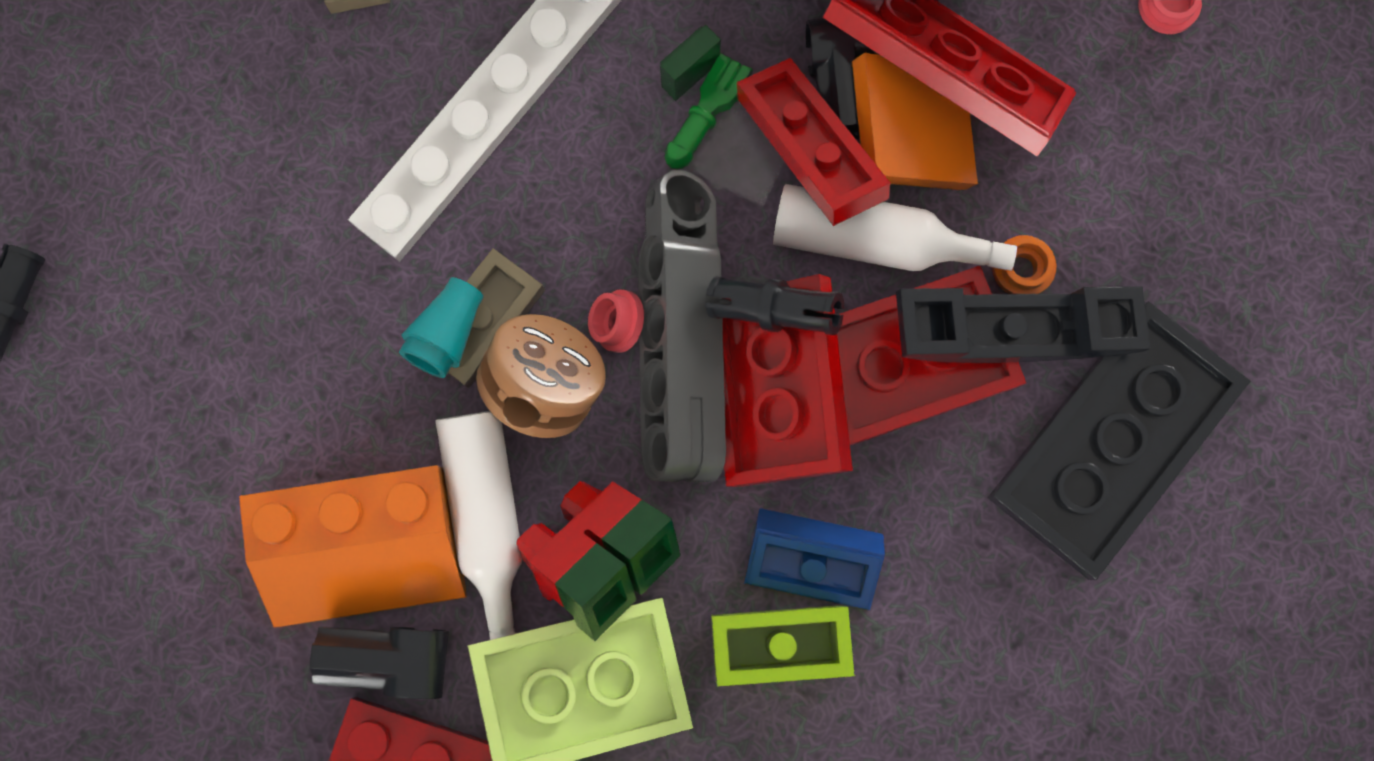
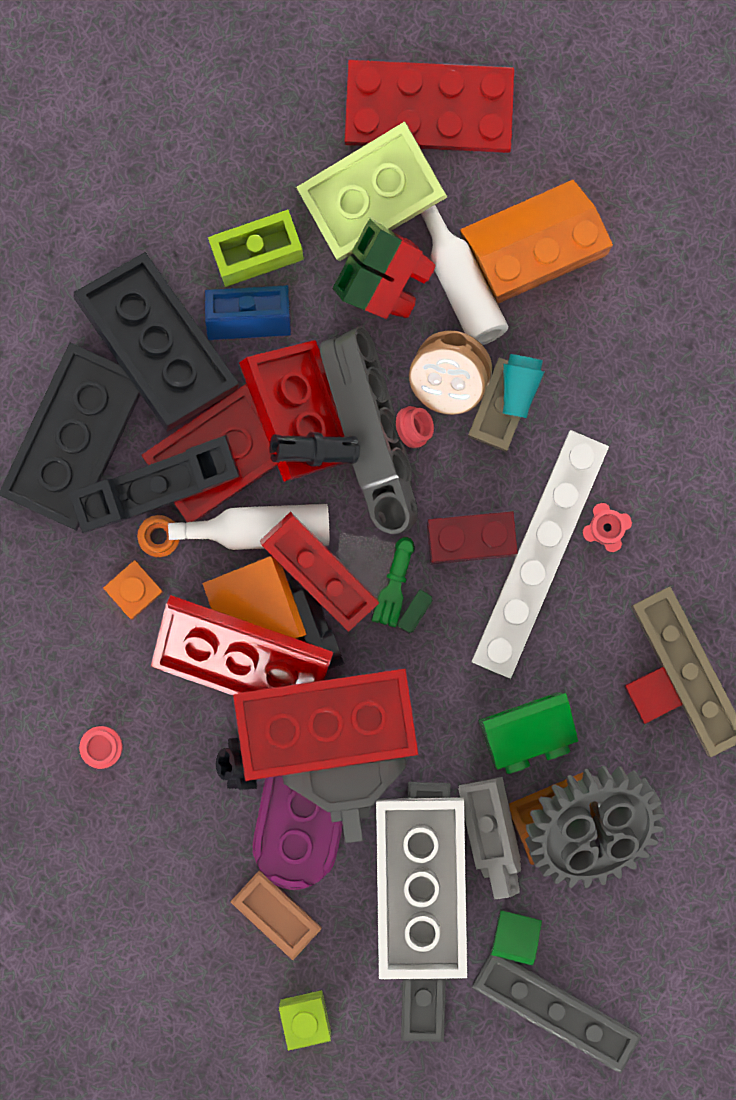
camera: 160 degrees right, 5 degrees up
(378, 97) = (618, 522): none -> coral plate
(397, 661) = (489, 178): black piece -> none
(579, 137) = (472, 537): none -> dark red brick
(968, 544) = (156, 341): none -> black plate
(1077, 202) = (133, 590): none -> orange plate

